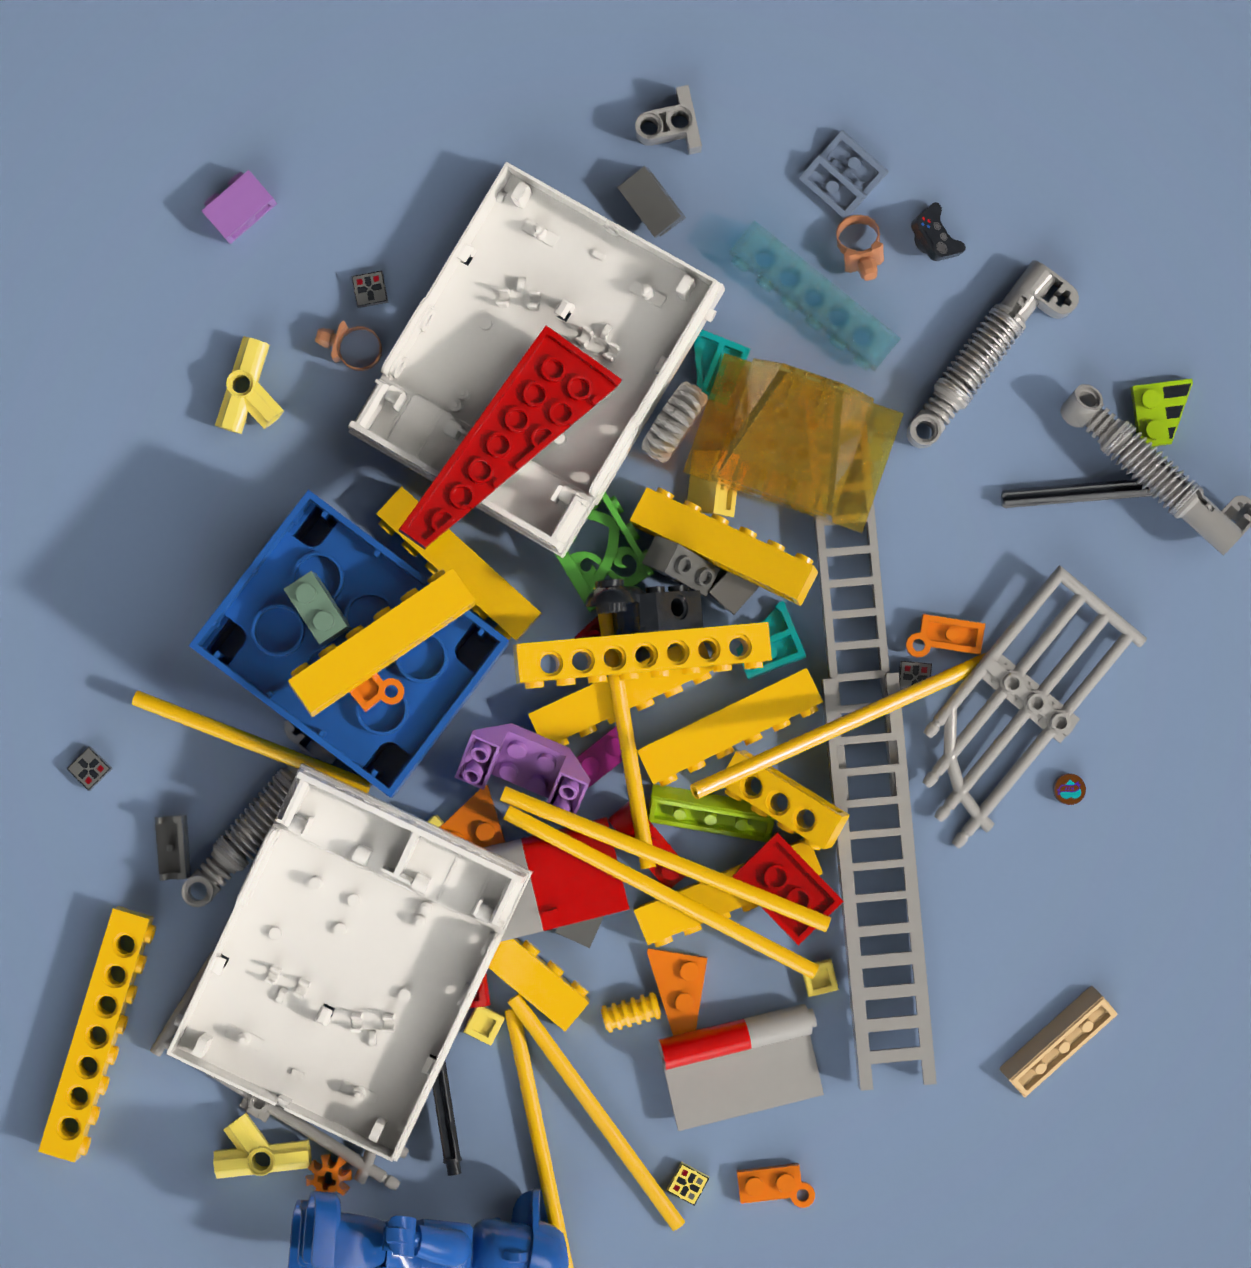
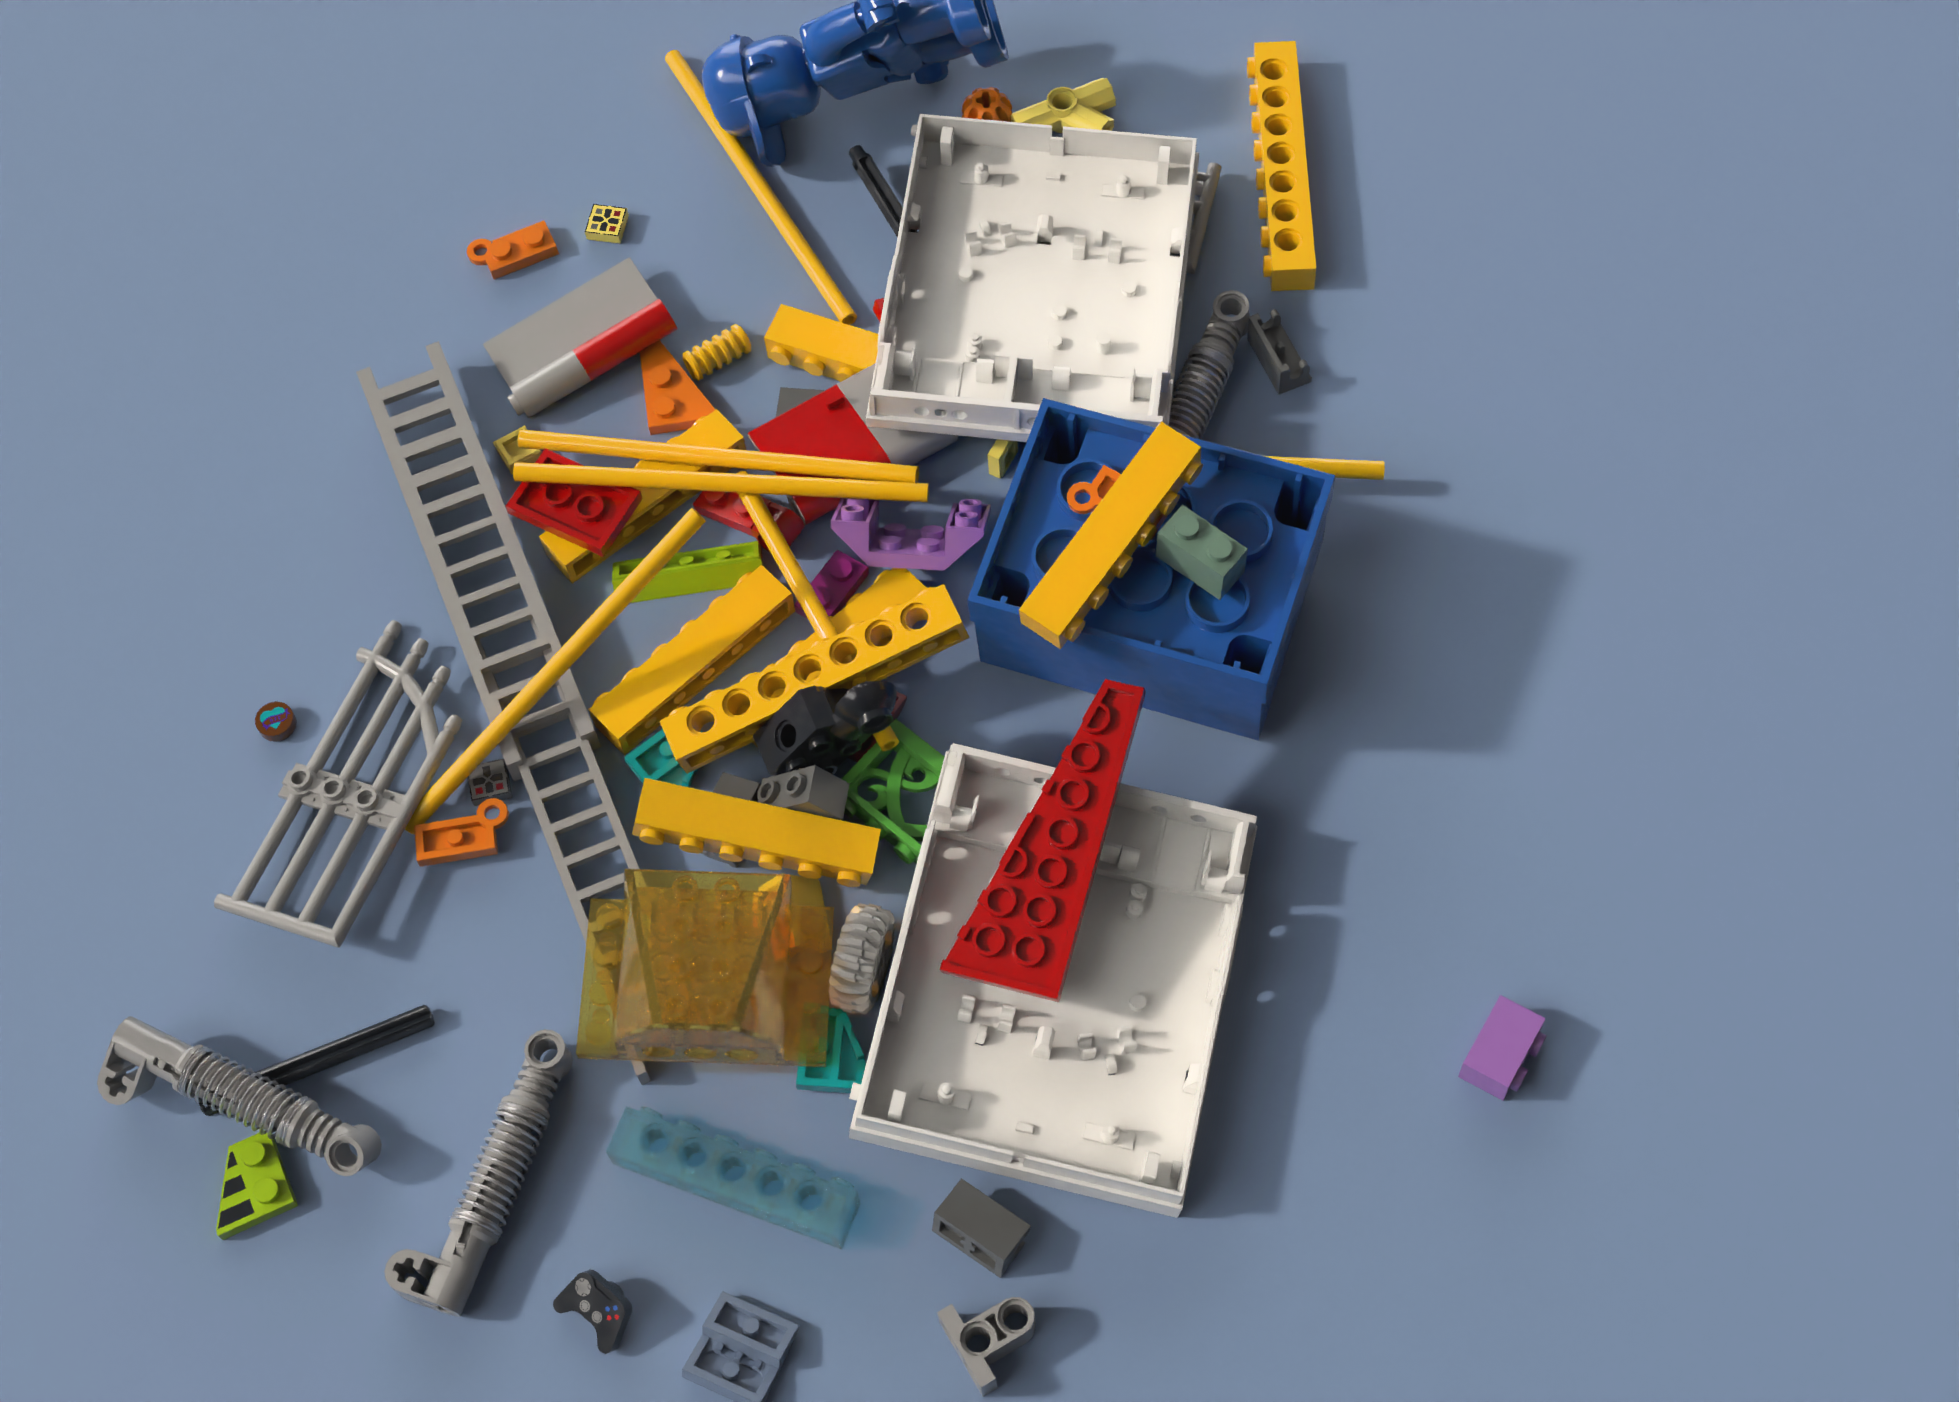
camera: 170 degrees right, 25 degrees down
(89, 768) = (1404, 401): tile -> none
(253, 401) = (1384, 830): light yellow piece -> none
(327, 339) = (1327, 928): nougat piece -> none
(369, 289) = (1299, 1008): tile -> none
(477, 820) = (956, 471): orange wing -> none
(484, 1024) = (866, 295): light yellow tile -> none
(491, 592) = (1051, 721): yellow brick -> none
(596, 1112) = (724, 252): yellow piece -> none
(828, 817) = (586, 591): yellow brick -> none
(862, 261) = (674, 1232): nougat piece -> none
(1058, 1041) = (233, 471): tan slope -> none

